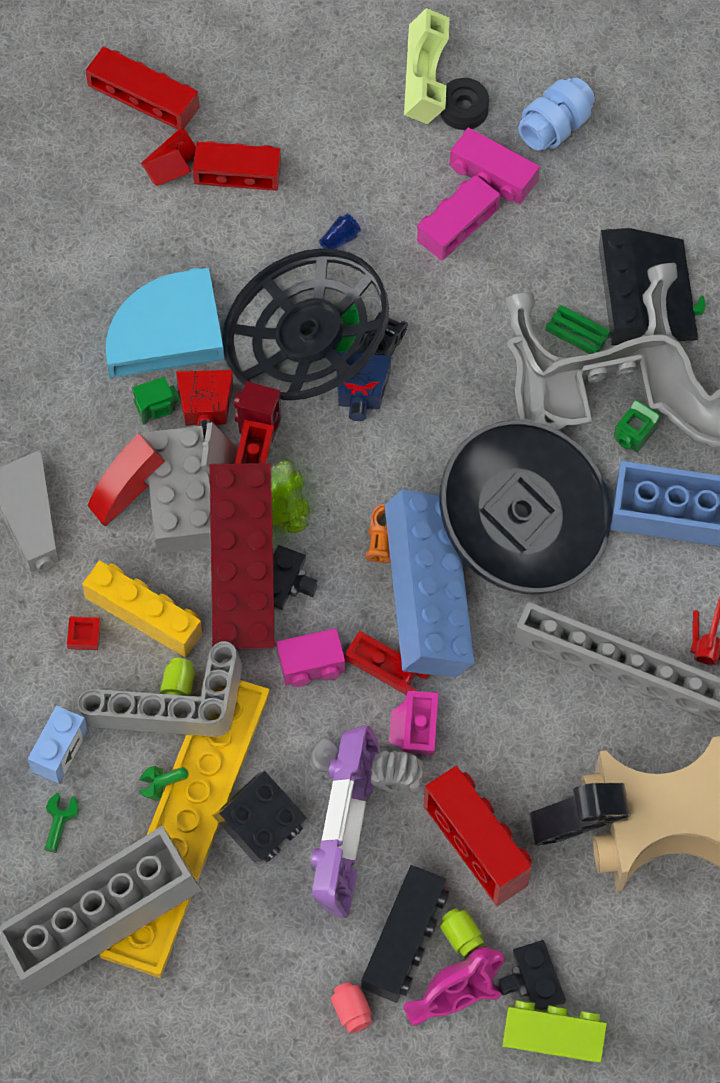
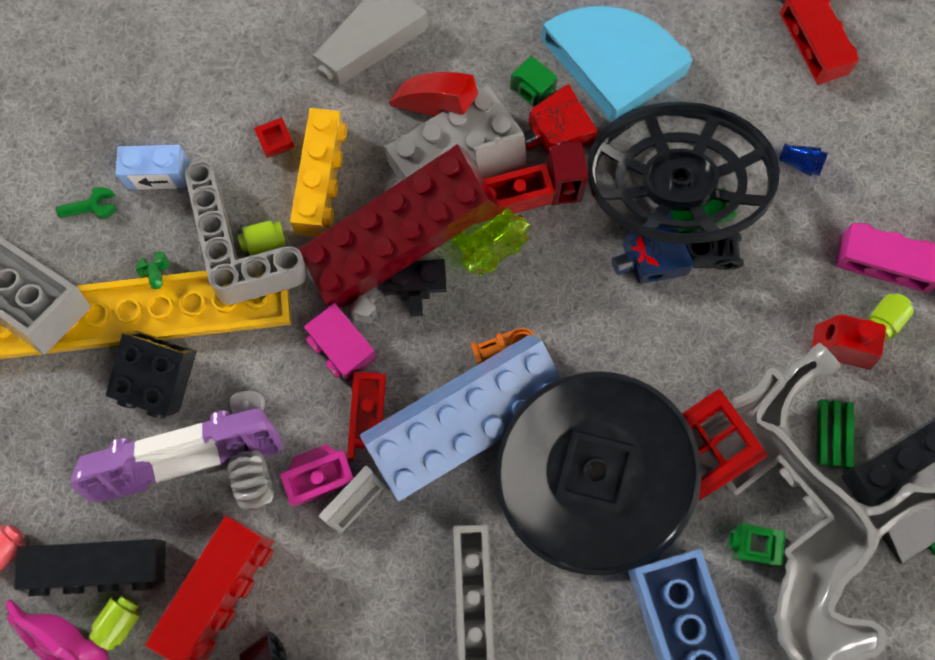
camera: 65 degrees right, 10 degrees up
(288, 626) = (363, 309): none -> light grey piece
(453, 704) = (352, 500): none -> light grey tile
(506, 243) = (892, 312): none -> lime brick
(515, 275) = (852, 341): none -> red torso
(567, 398) = (736, 464): none -> red piece

